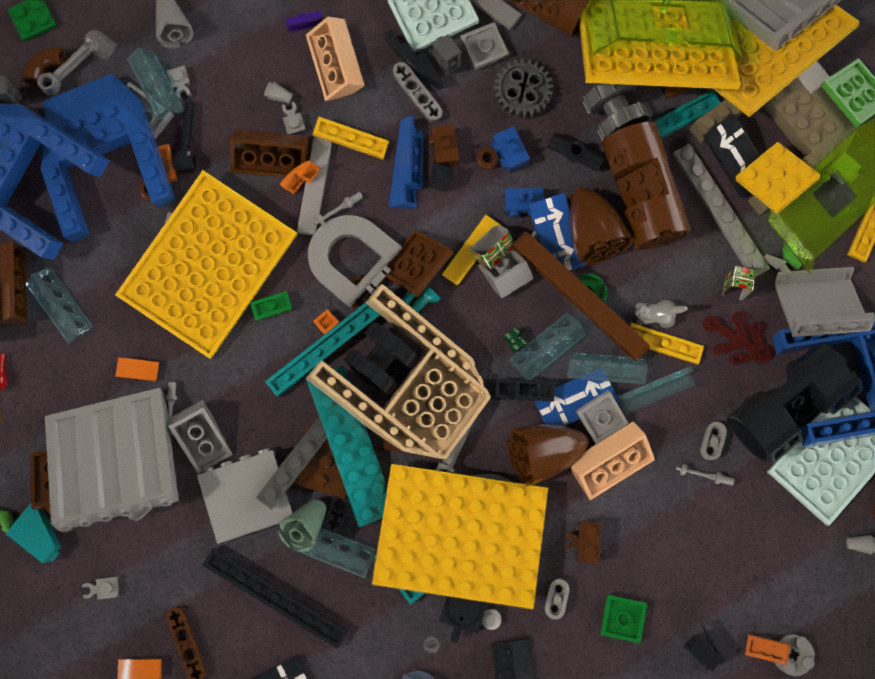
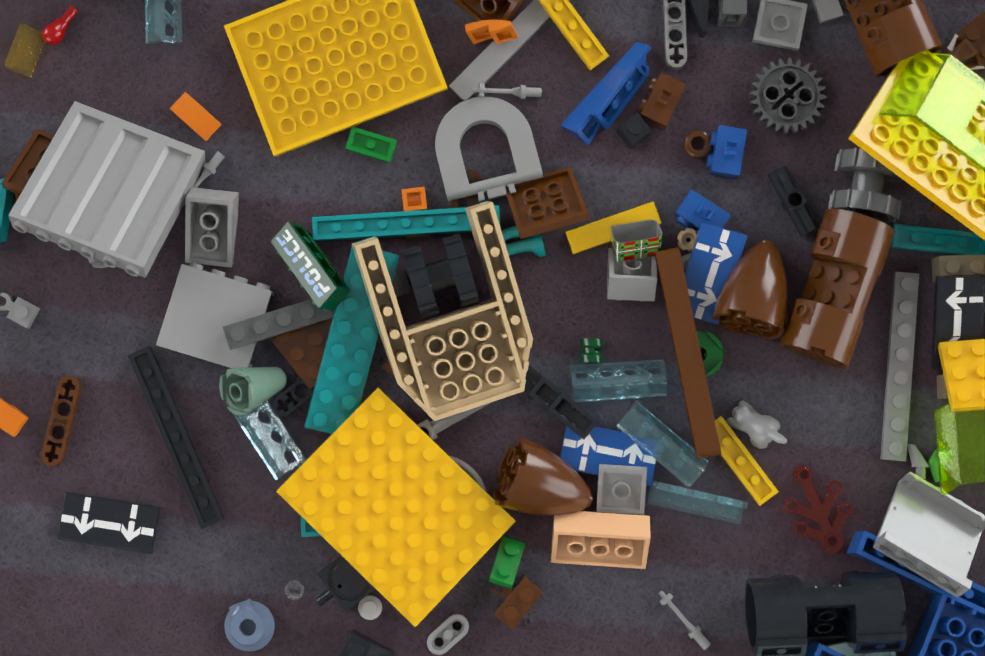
camera: 40 degrees right, 5 degrees up
(287, 414) = (310, 266): none -> brick
(521, 223) = (683, 235): none -> tan plate
(561, 521) = (507, 562): none -> green plate
(713, 441) = (718, 594): light grey plate -> none
(741, 278) = (864, 451): piece -> none

